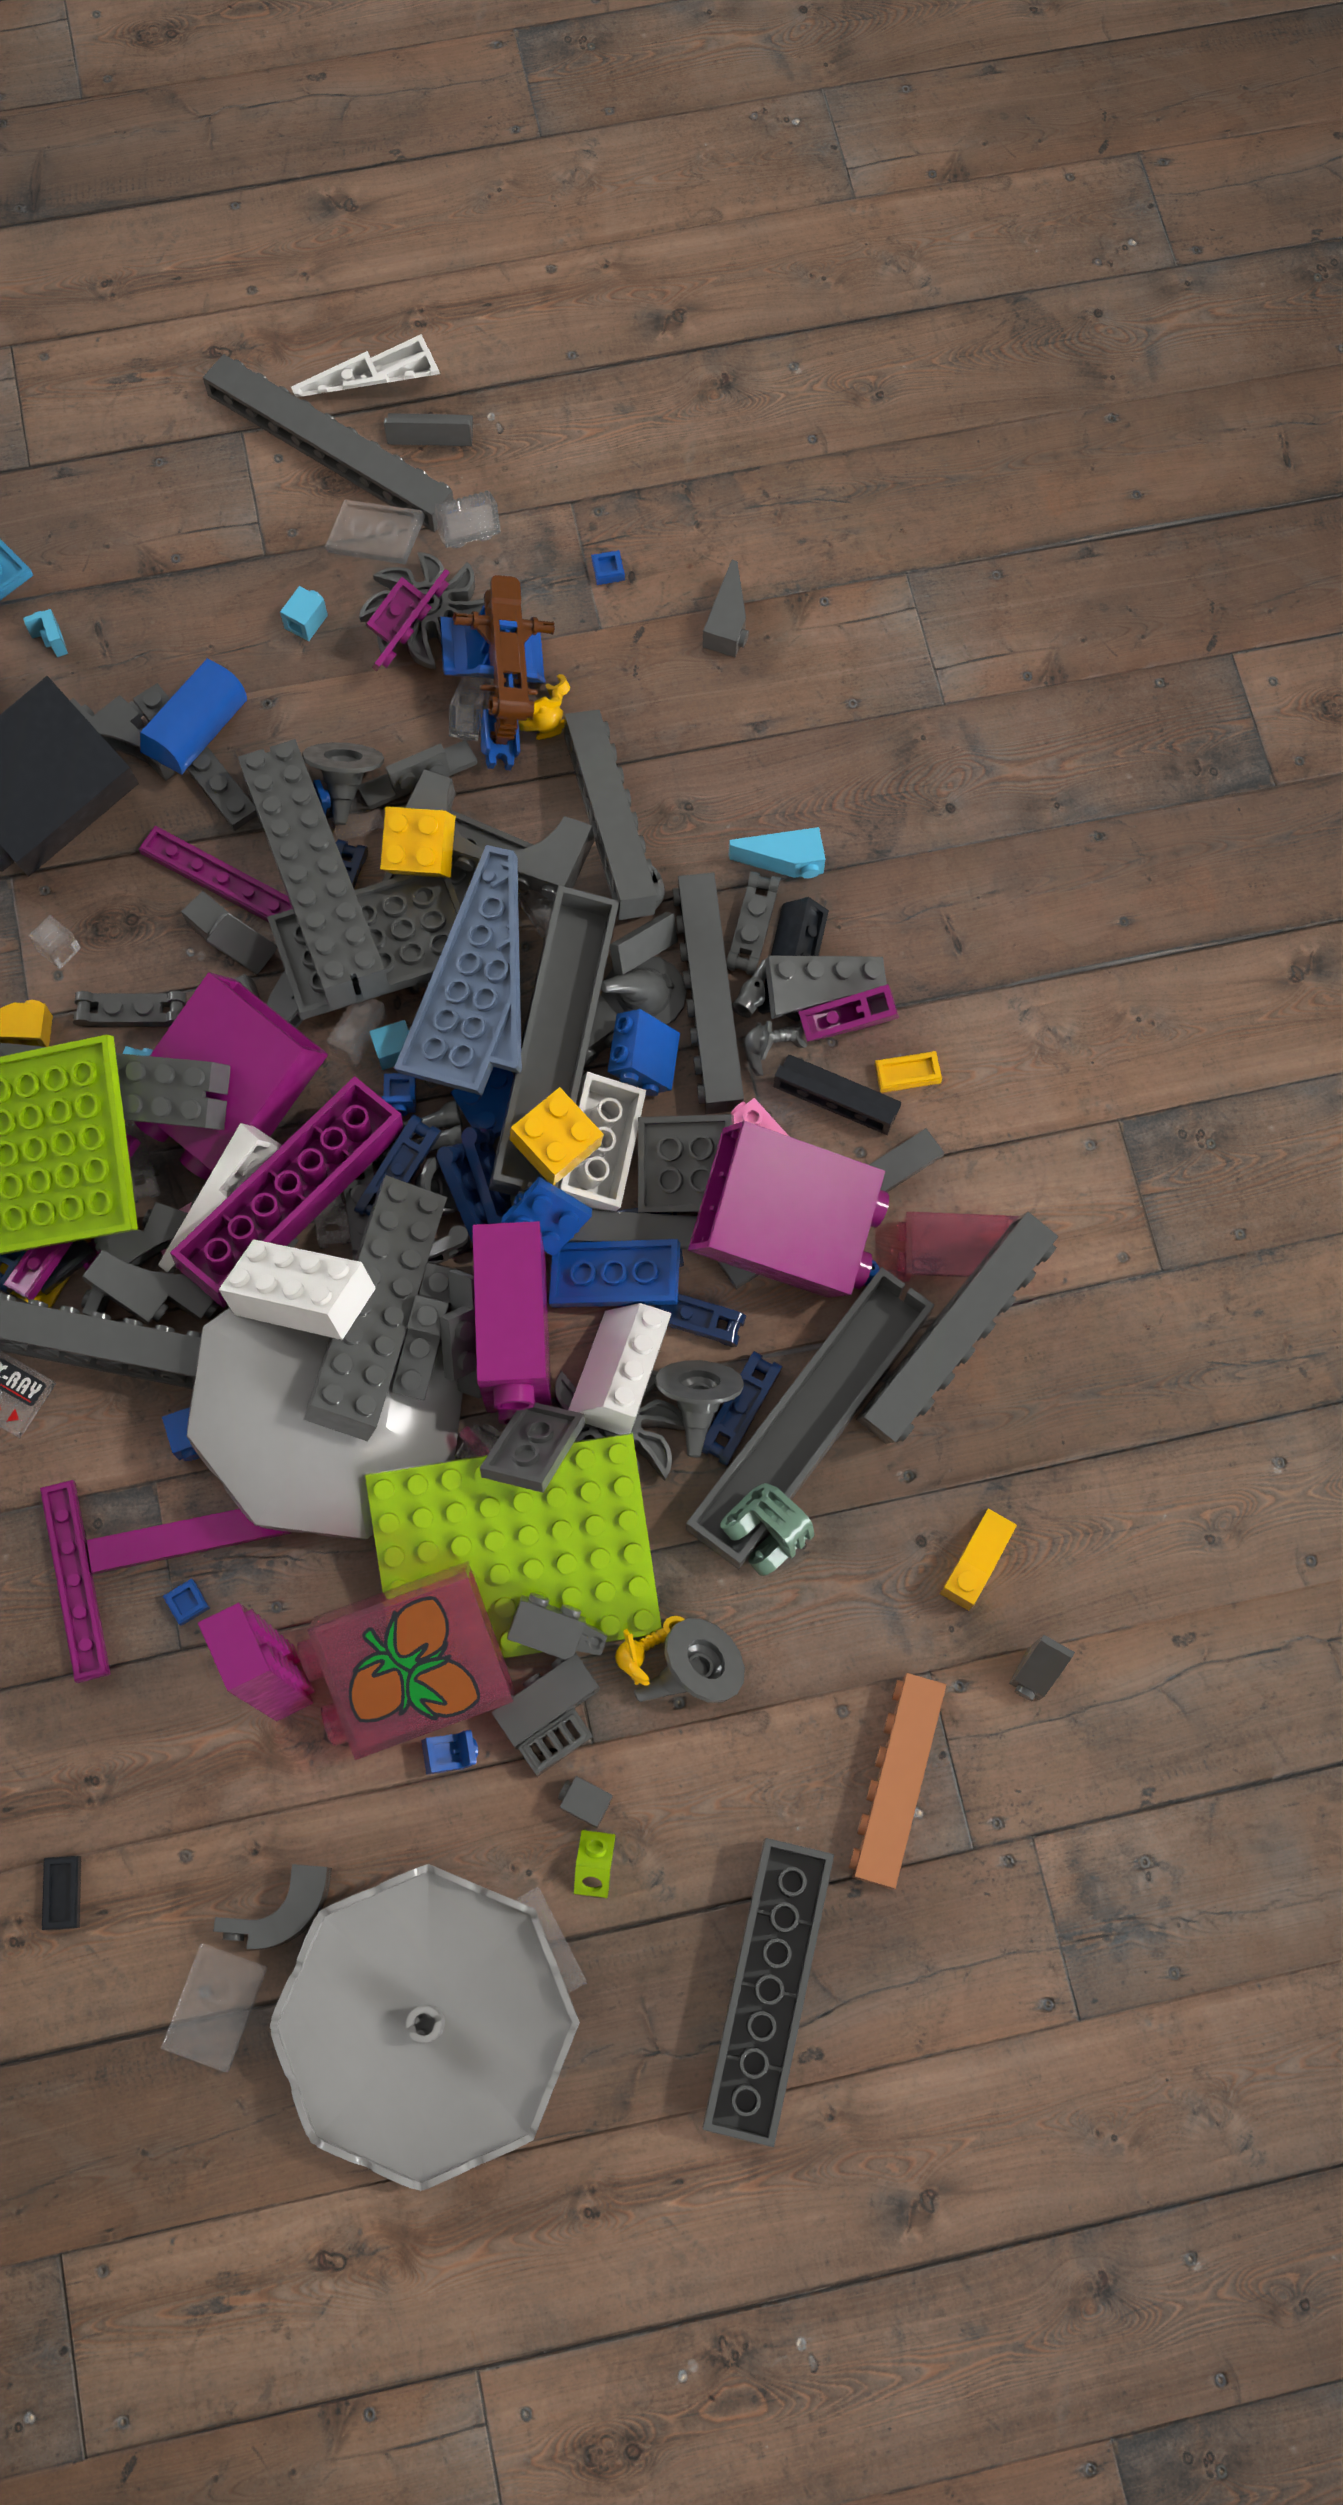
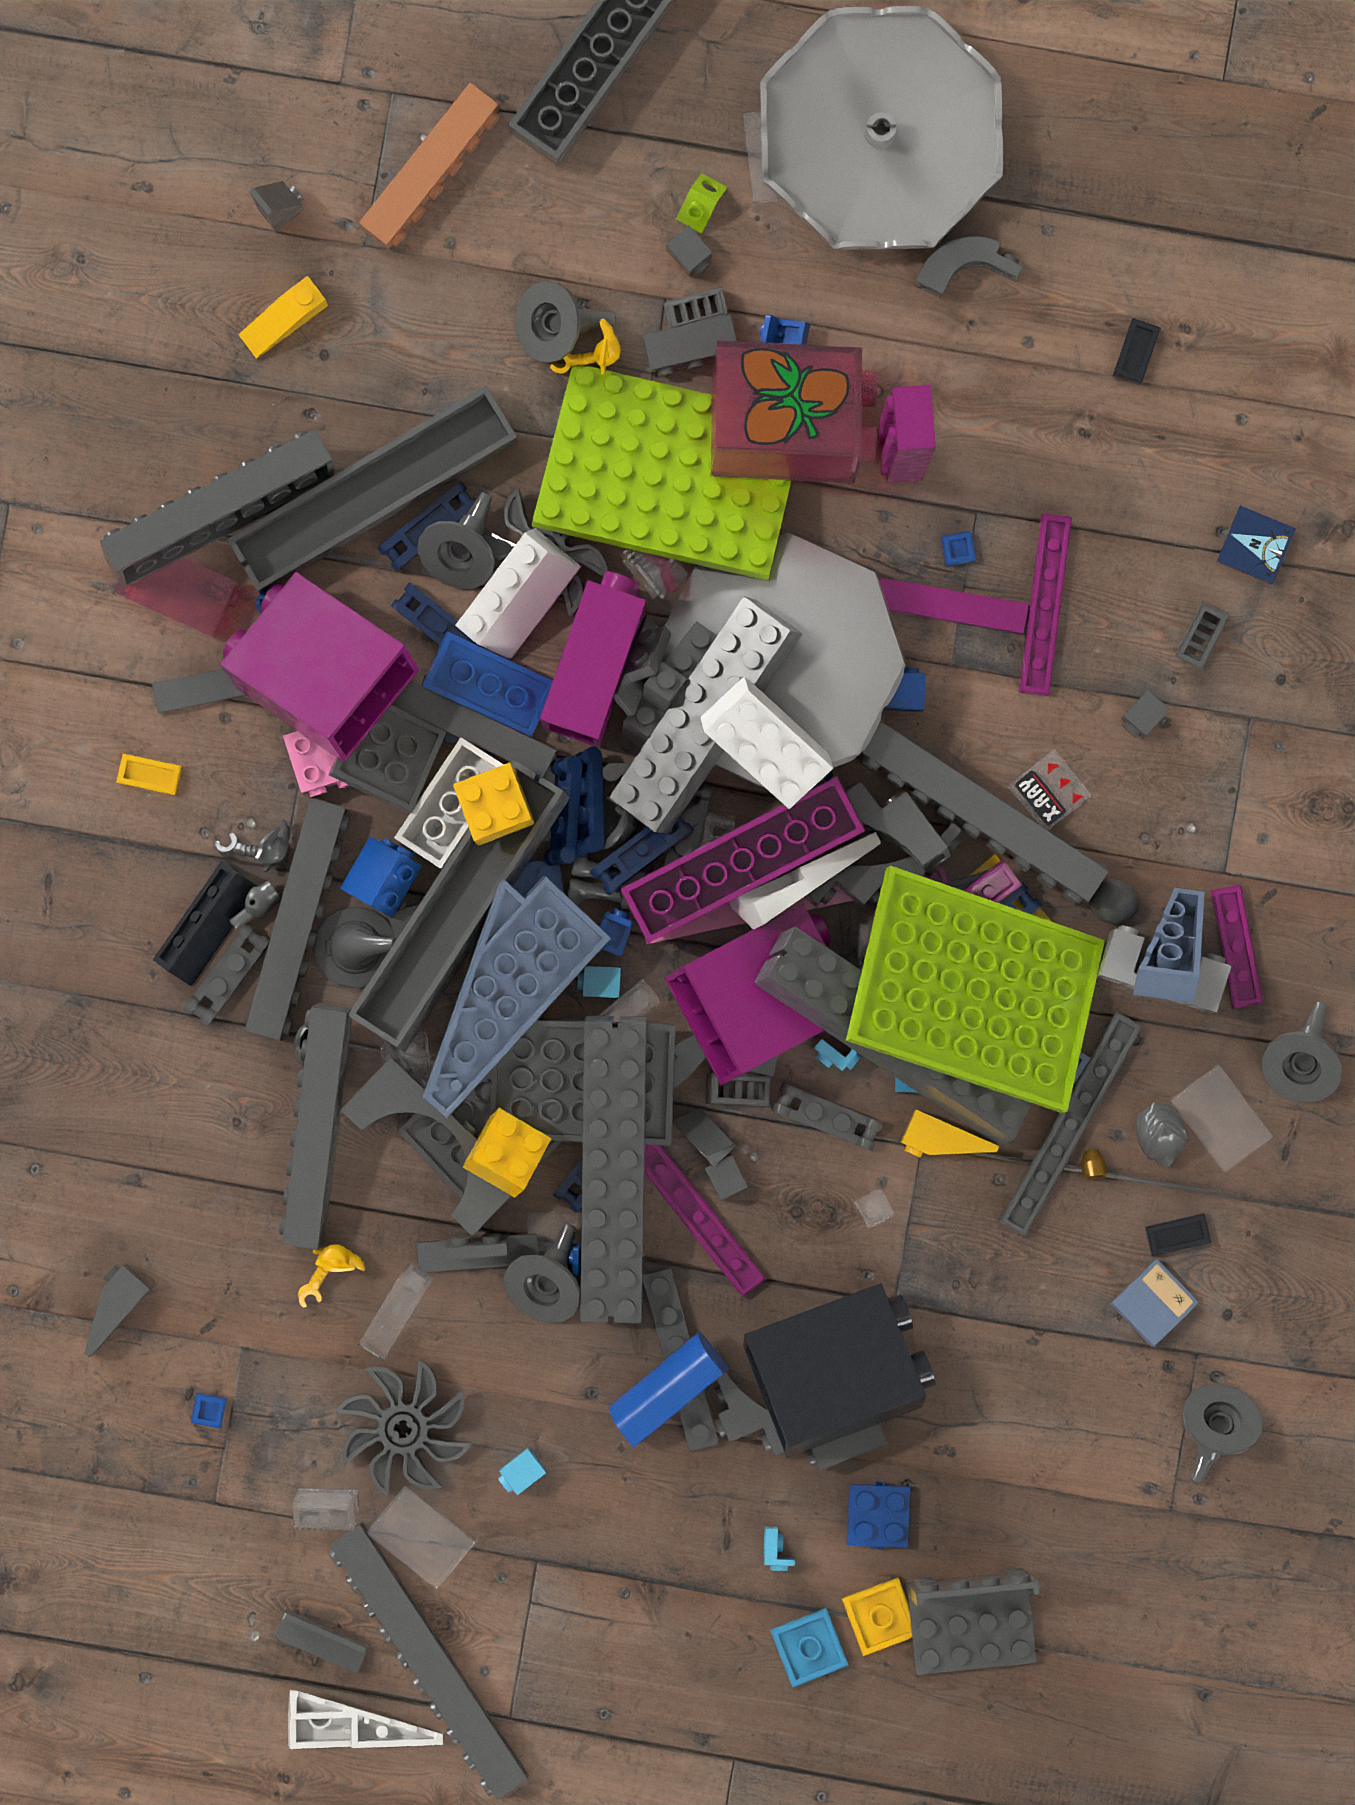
camera: 155 degrees left, 15 degrees up
(214, 2007) = (1043, 214): clear tile -> none
(399, 611) = (430, 1416): magenta bracket -> none
(500, 648) = (358, 1339): piece -> none
(533, 1446) = (620, 538): dark grey plate -> none
(554, 1628) = (662, 394): dark grey hinge -> none
(557, 1211) = (529, 748): blue plate -> none
(643, 943) = (338, 982): dark grey tile -> none
(782, 1518) = (437, 403): sand green piece -> none
(787, 853) = (164, 1028): medium azure slope -> none
(814, 980) = (198, 886): dark grey wing -> none
(837, 1094) = (221, 779): black panel -> none
(849, 1013) = (178, 844): magenta slope -> none

